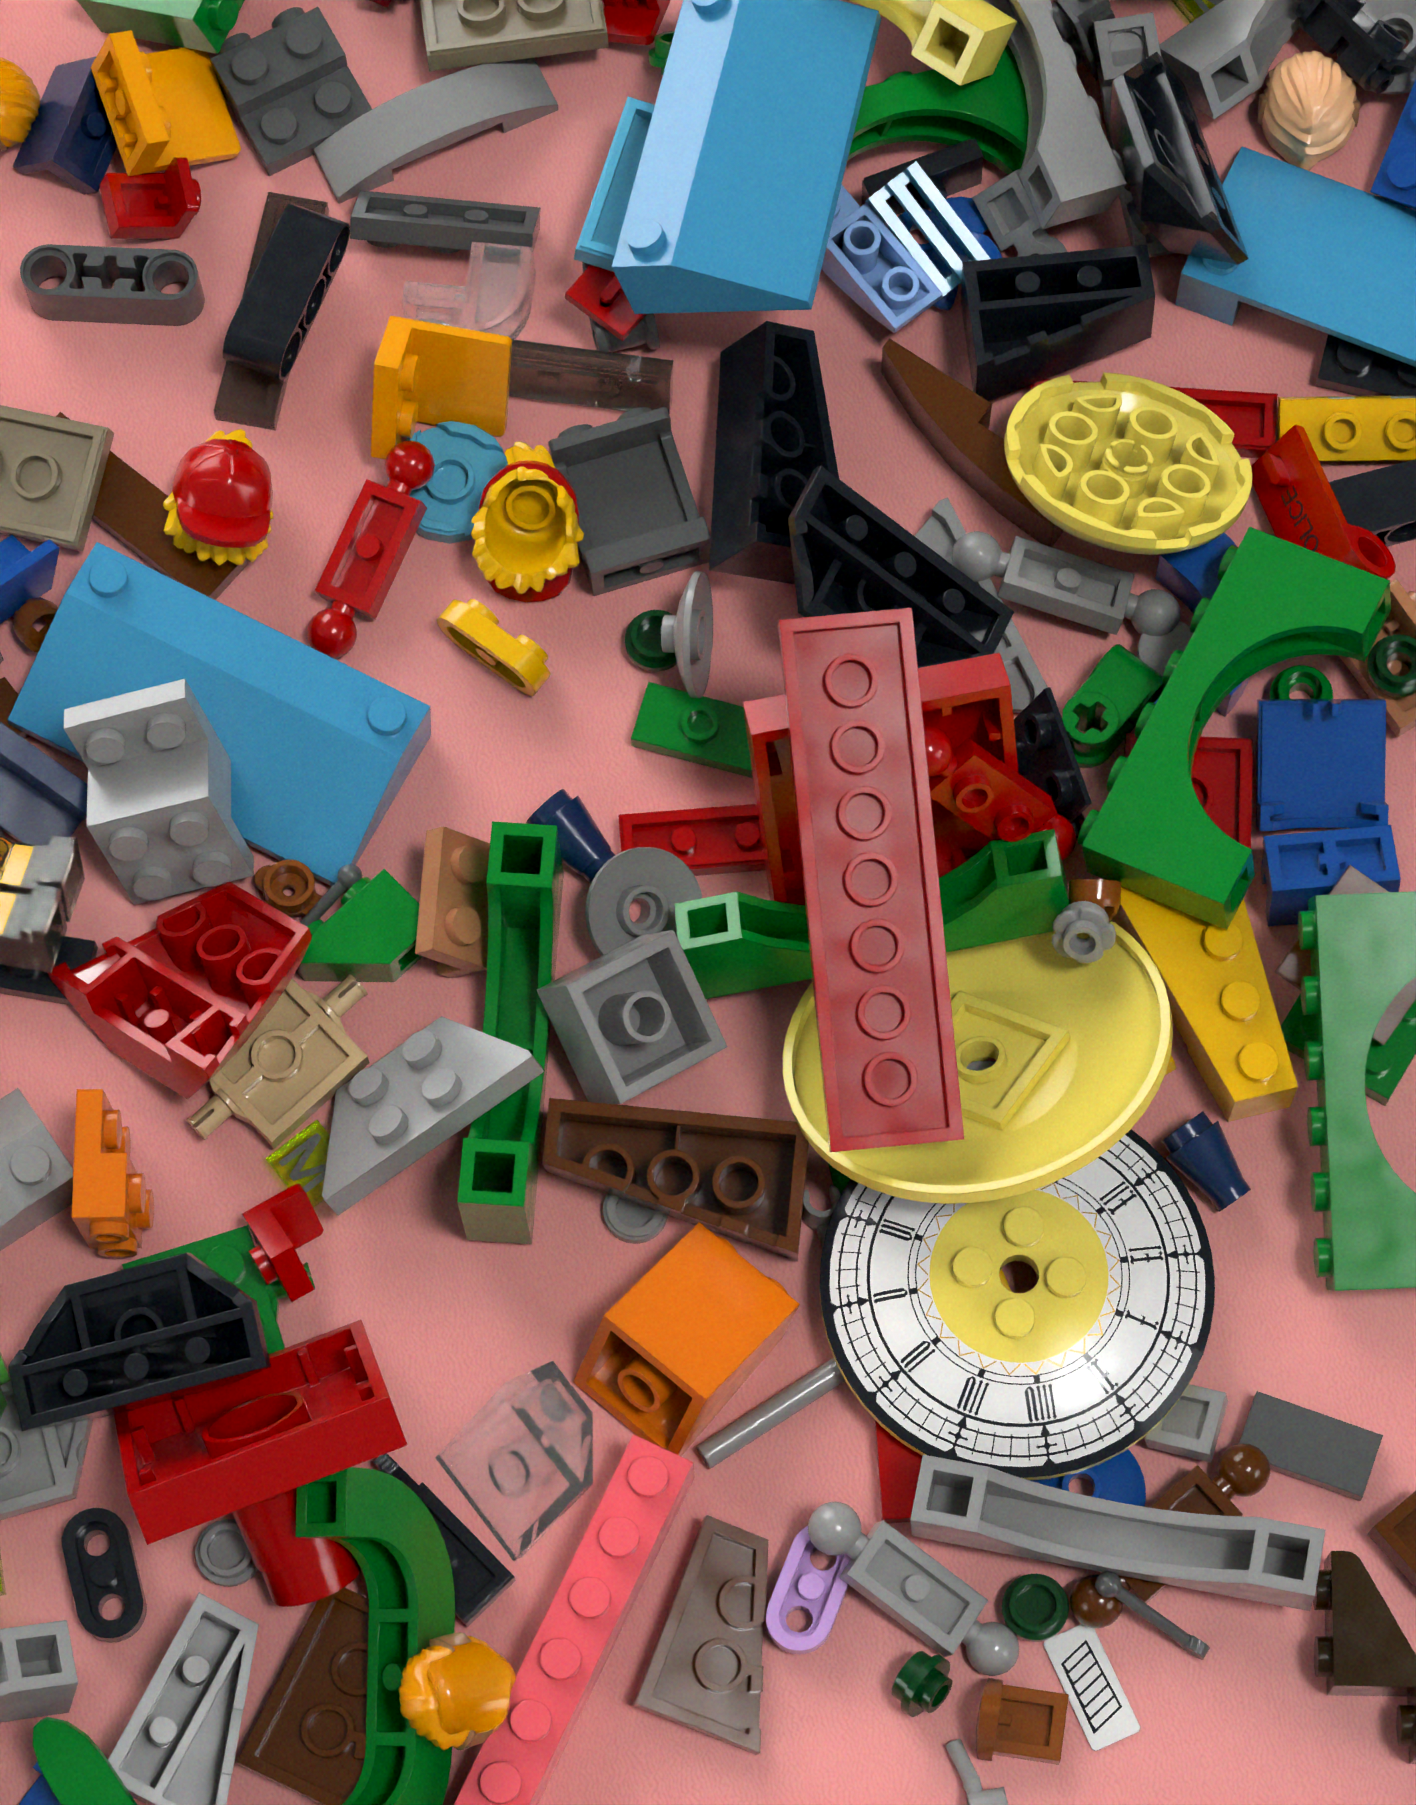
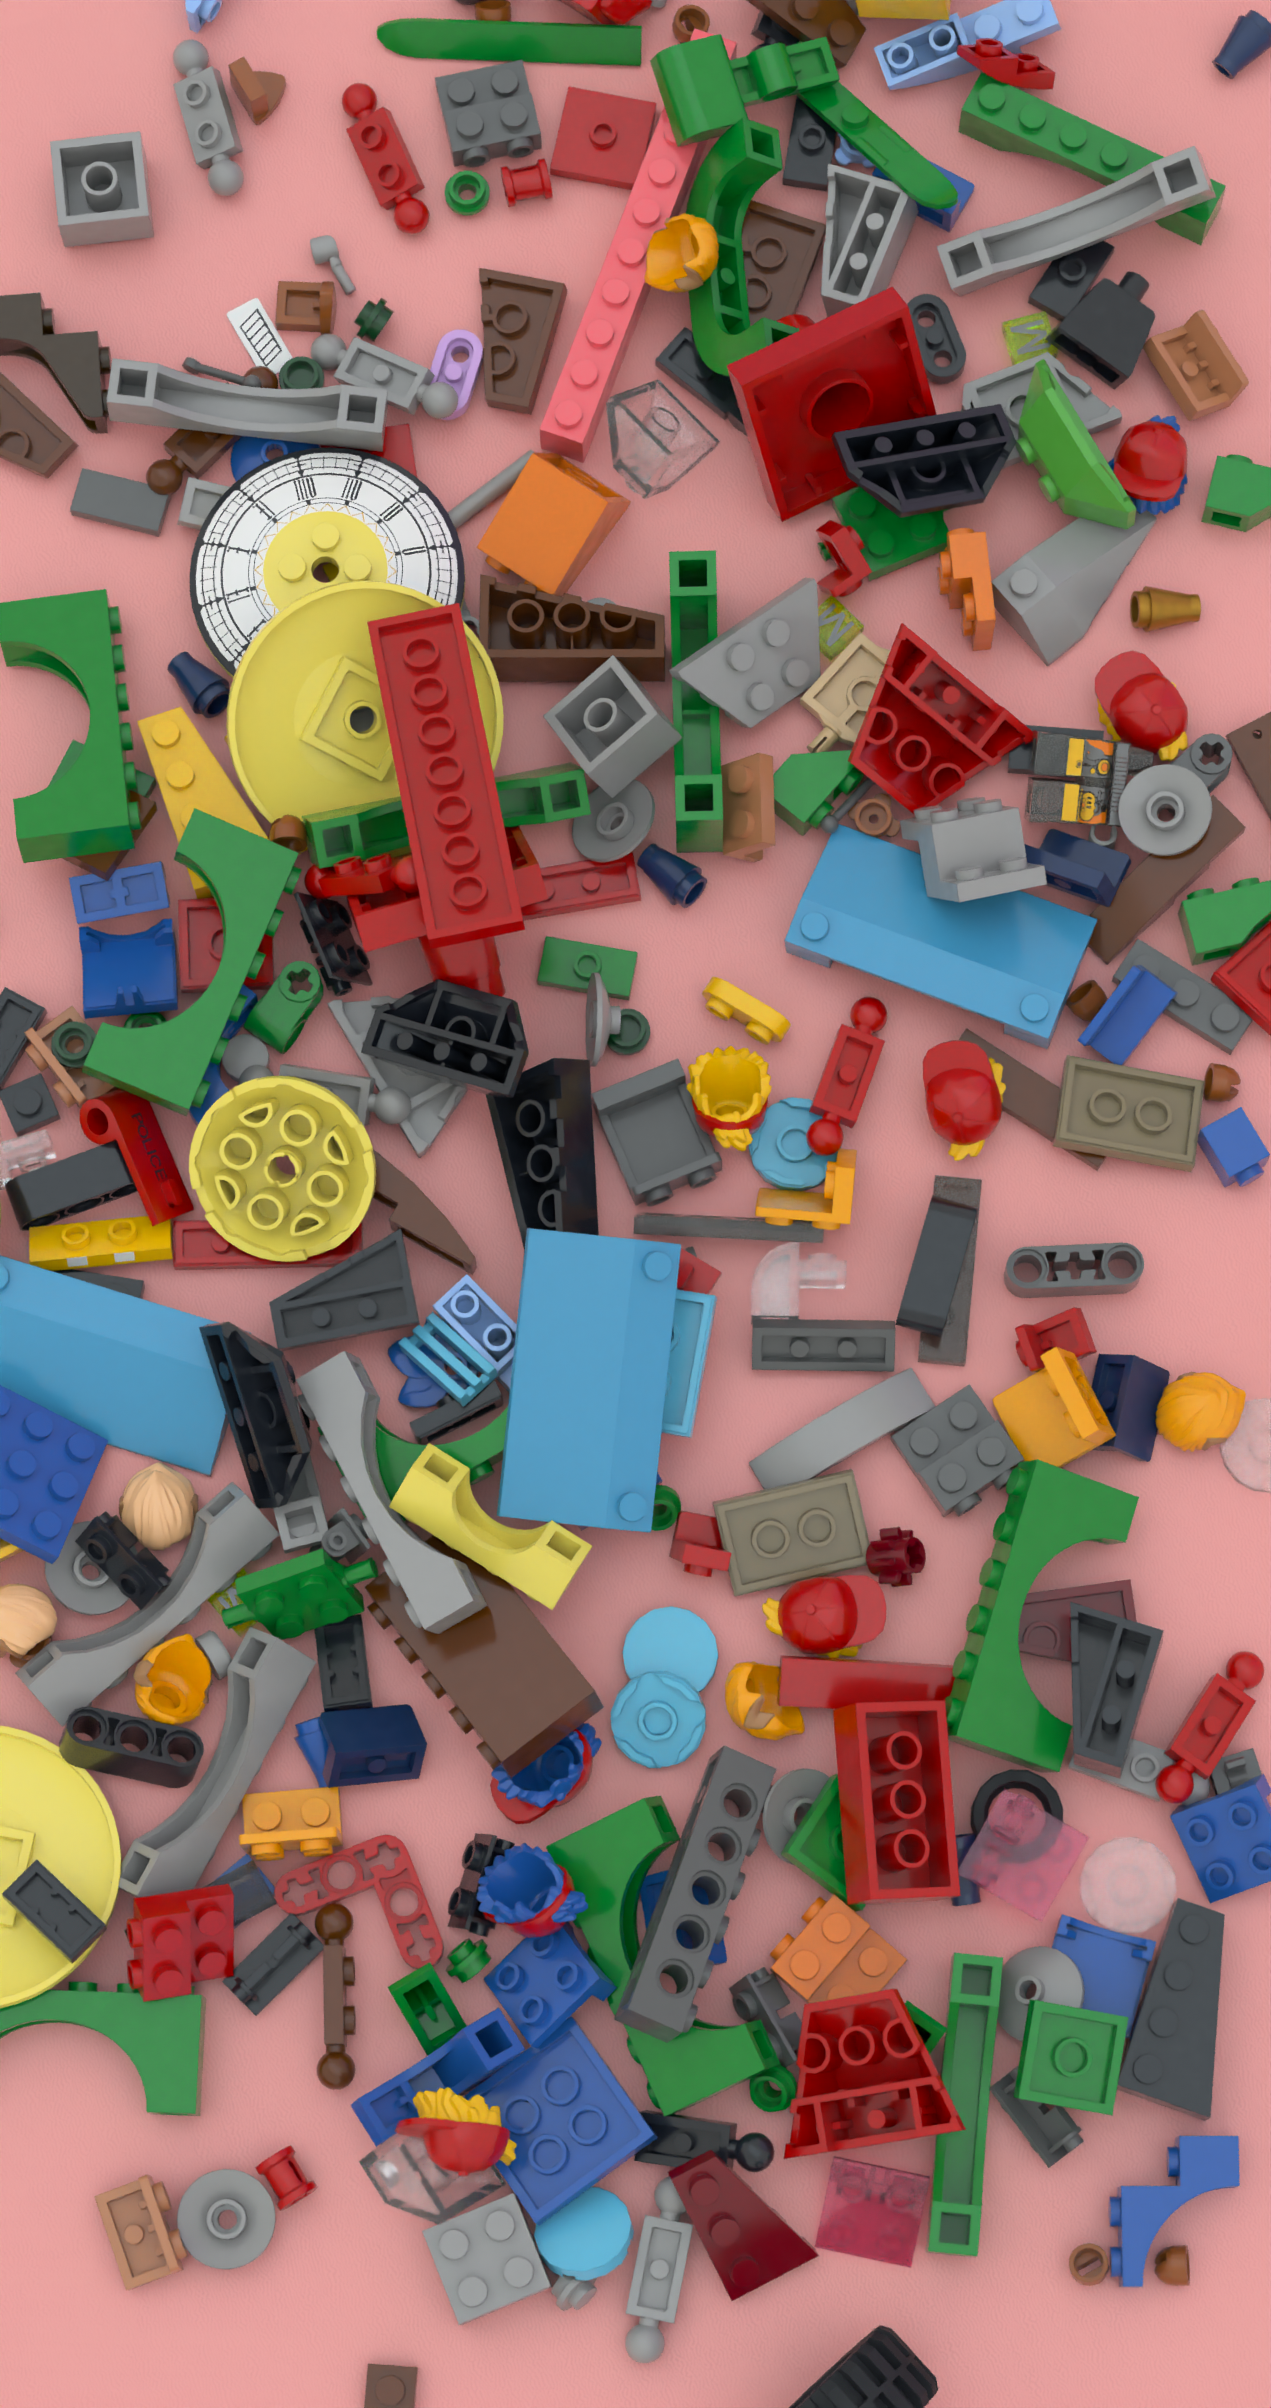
camera: 175 degrees right, 5 degrees up
(1013, 219) = (393, 1392): light grey plate -> none
(1083, 918) = (294, 801): light grey plate -> none

